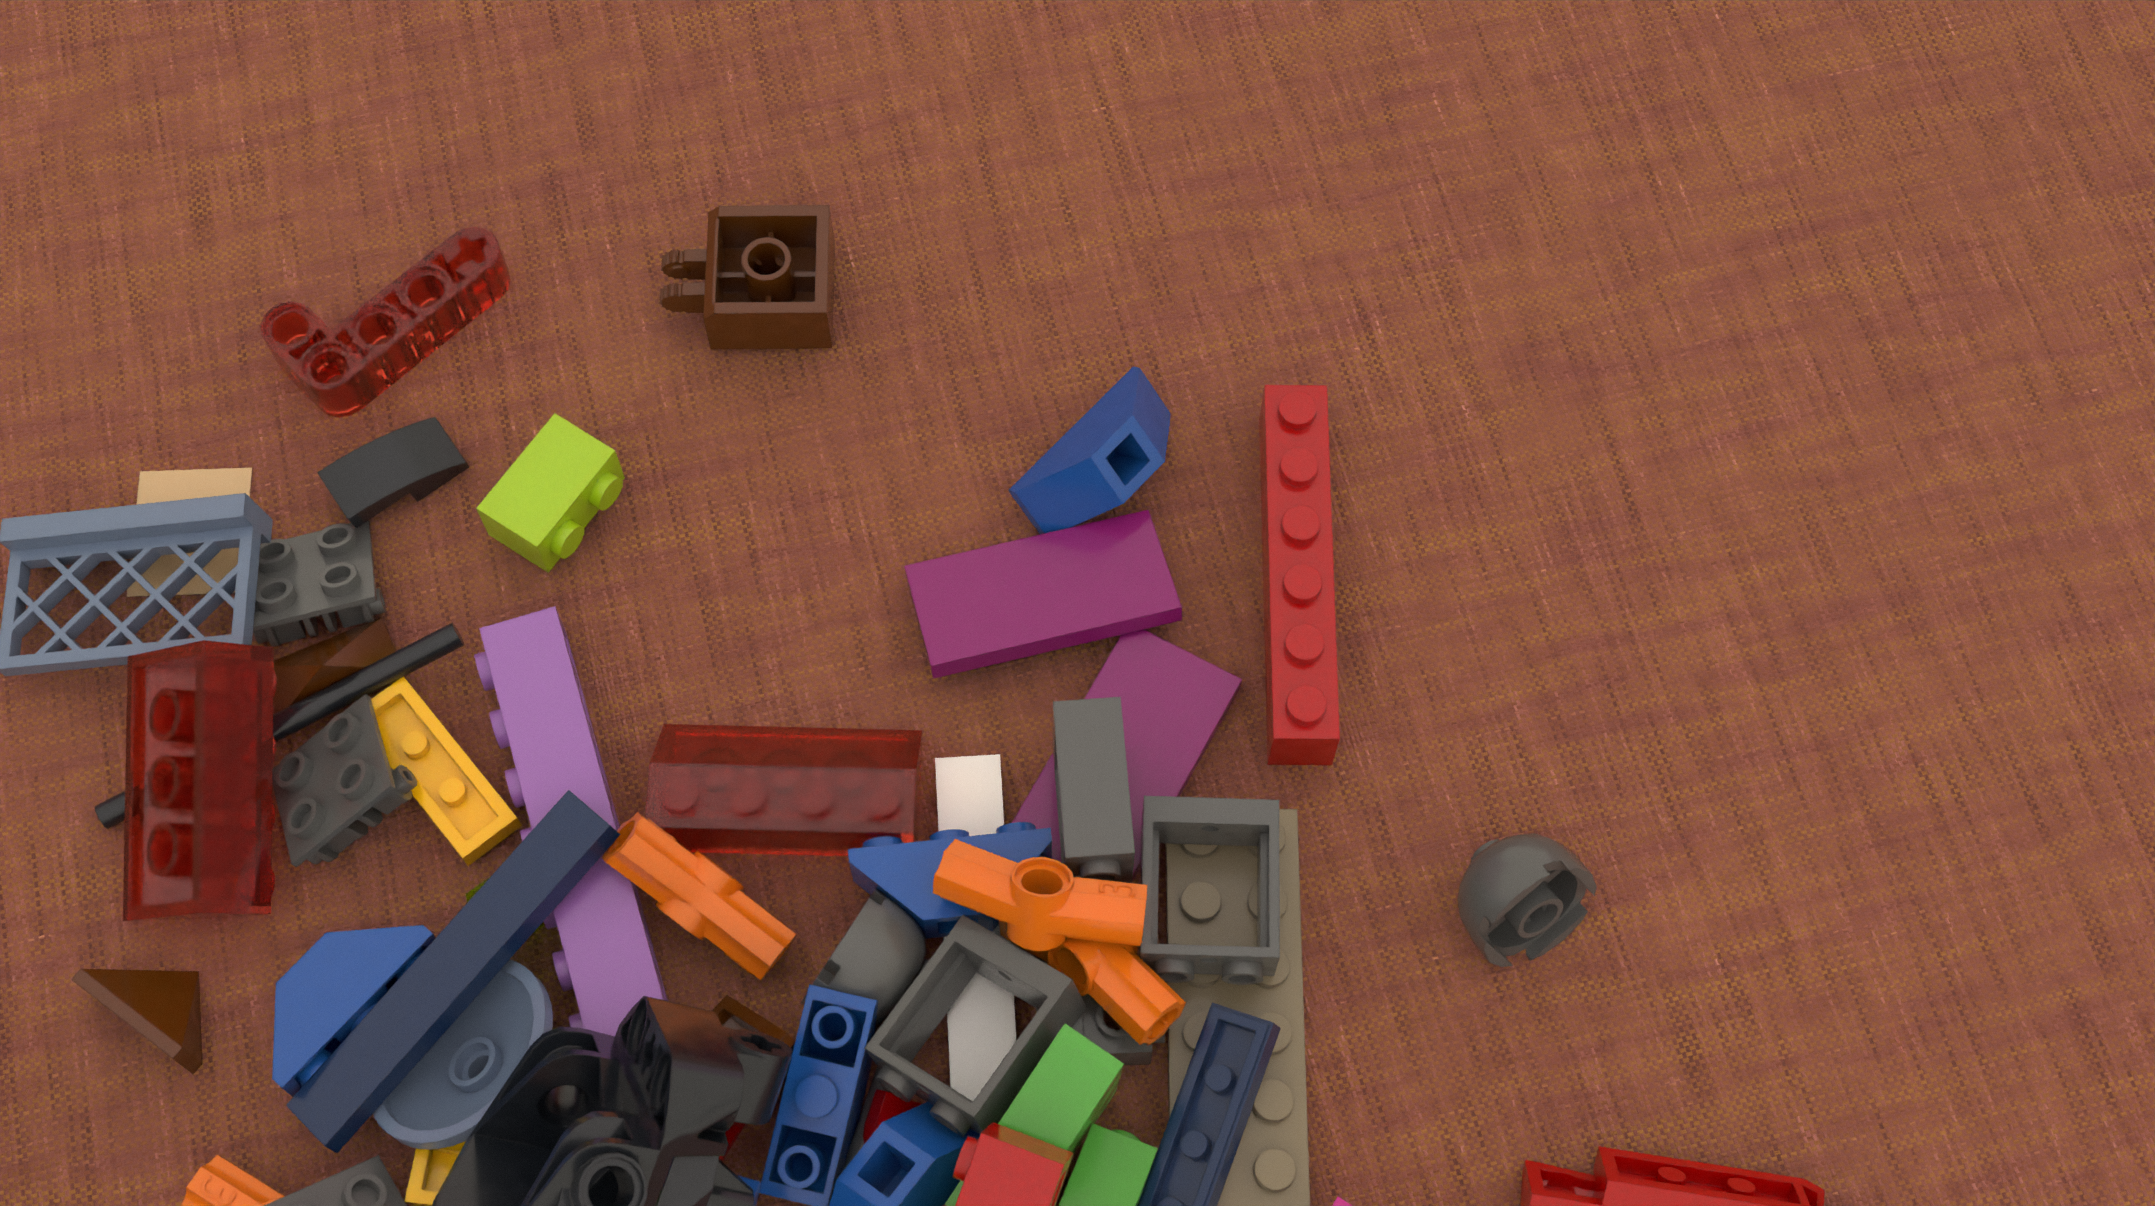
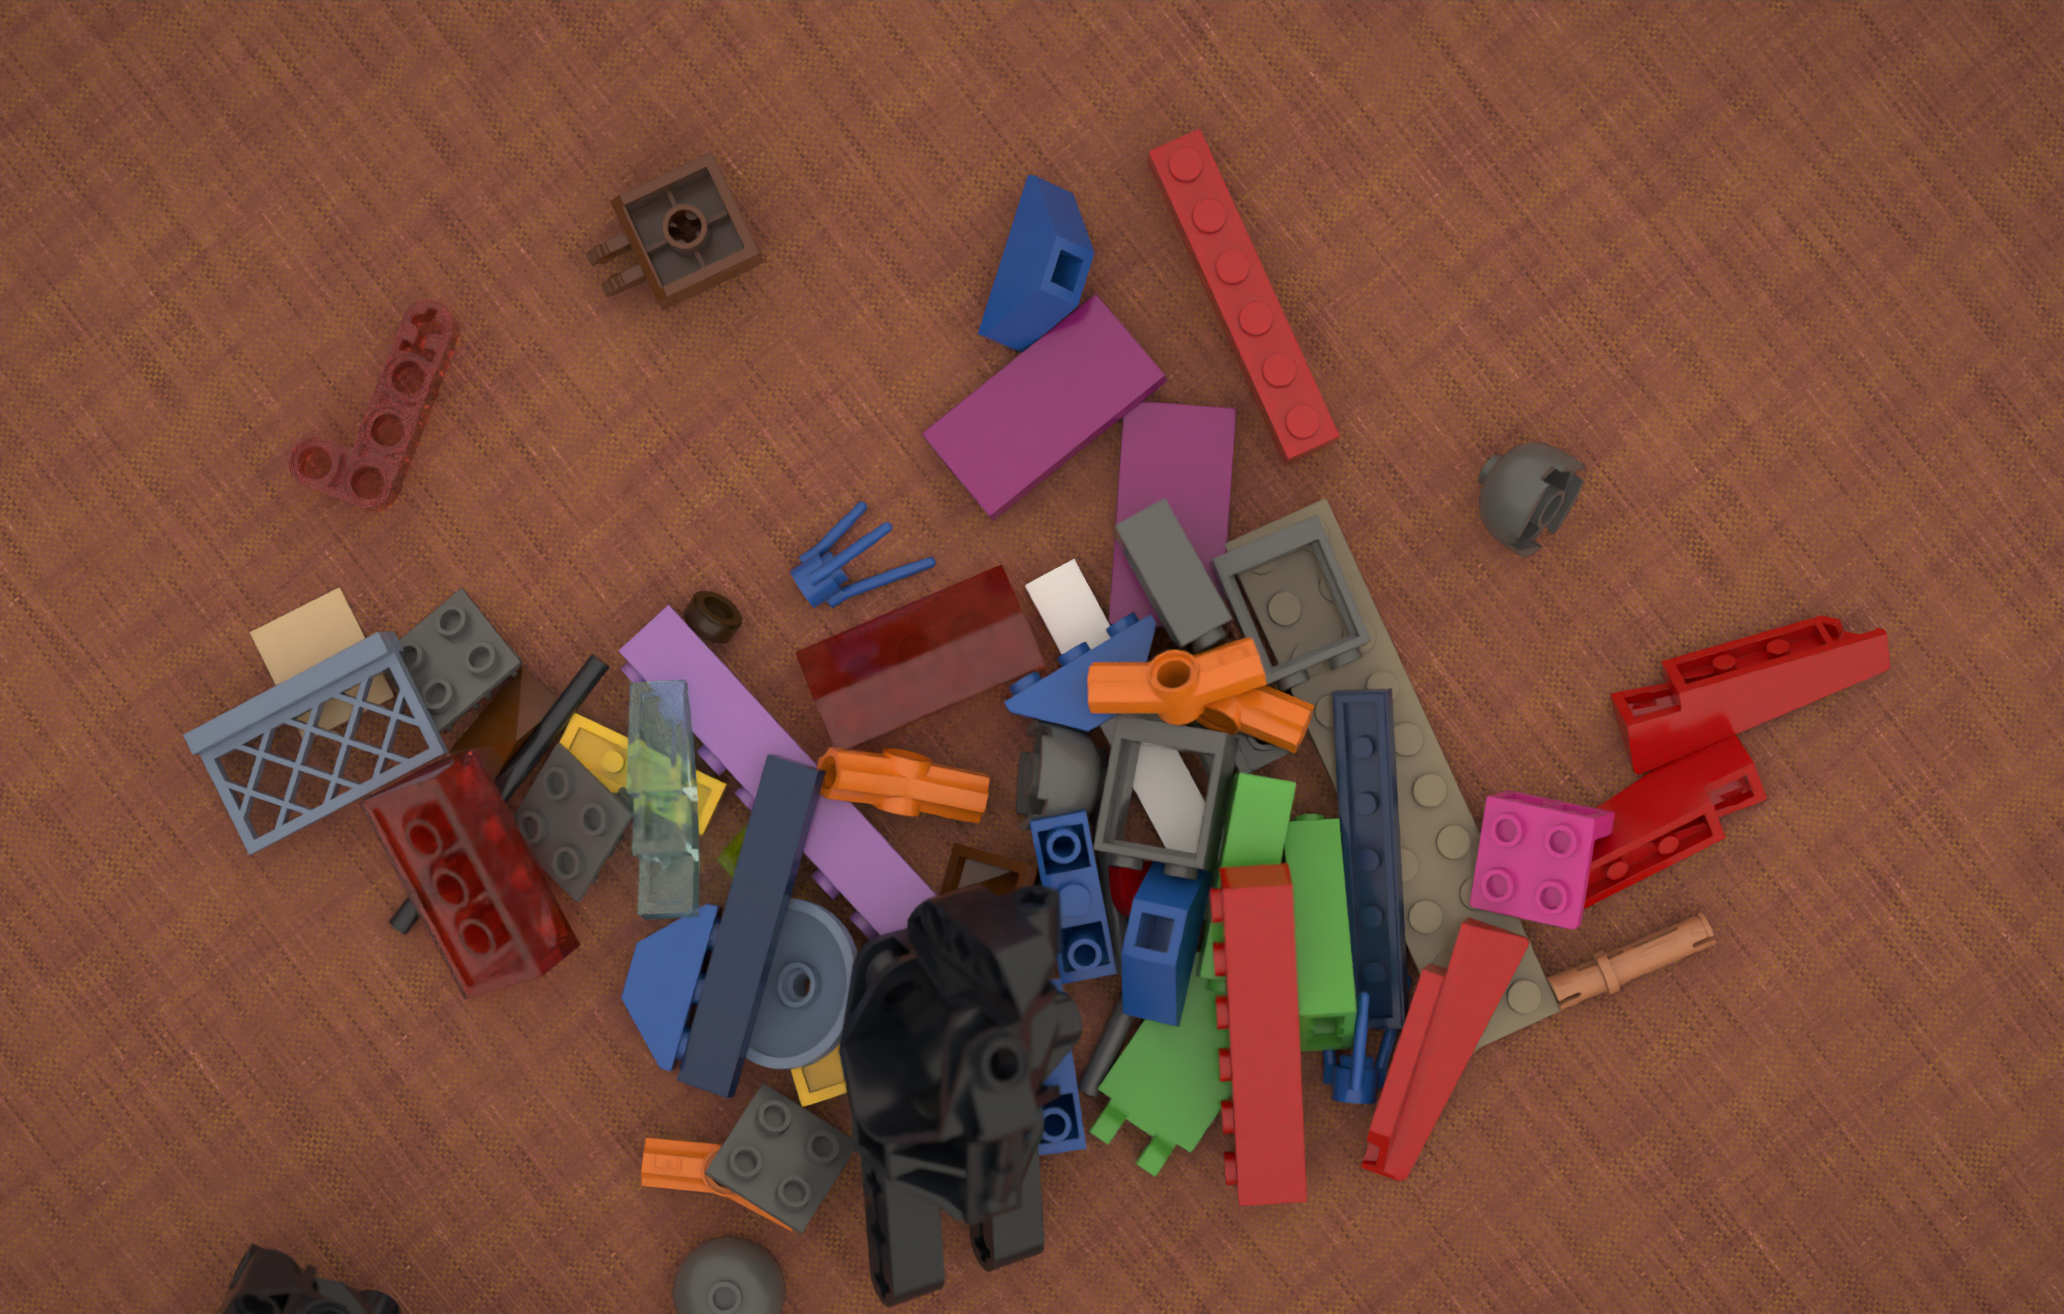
camera: 20 degrees left, 20 degrees up
(154, 1003) = (530, 1051): reddish brown slope -> none
(390, 467) = (463, 540): black slope -> none
(444, 787) = (665, 799): none -> clear light blue slope
(552, 493) = (610, 506): lime brick -> none
(597, 647) = (713, 617): none -> dark brown tile
(732, 655) = (822, 575): none -> blue plant

